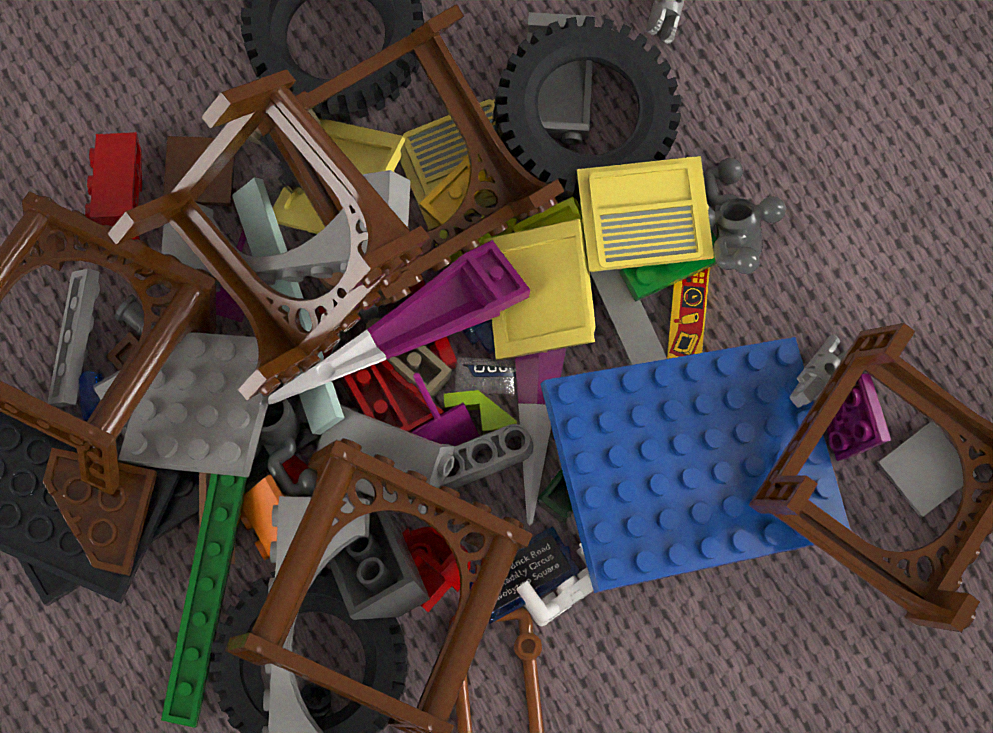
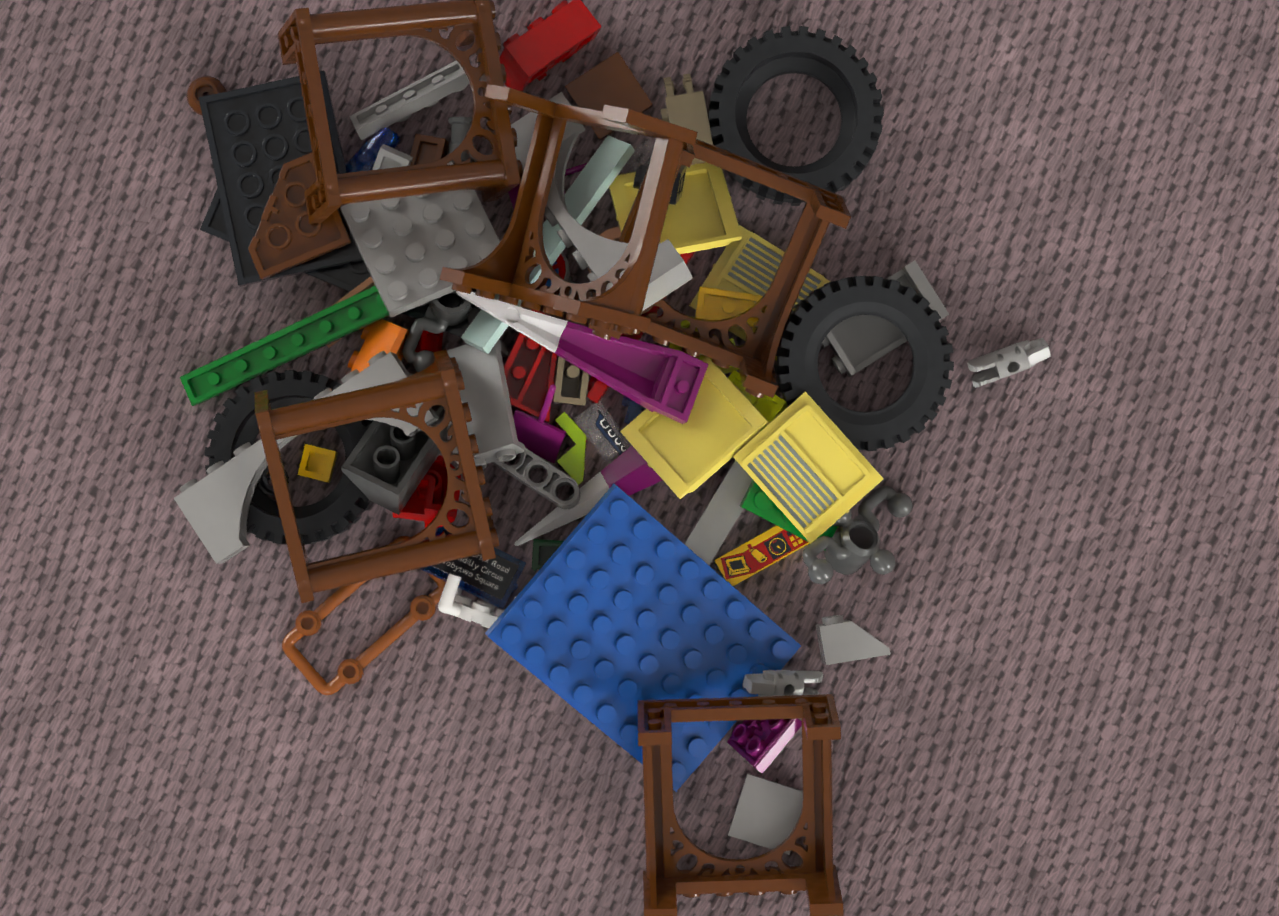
camera: 55 degrees right, 10 degrees up
(330, 648) = (317, 463): none -> yellow plate
(819, 291) = (846, 641): none -> light grey slope

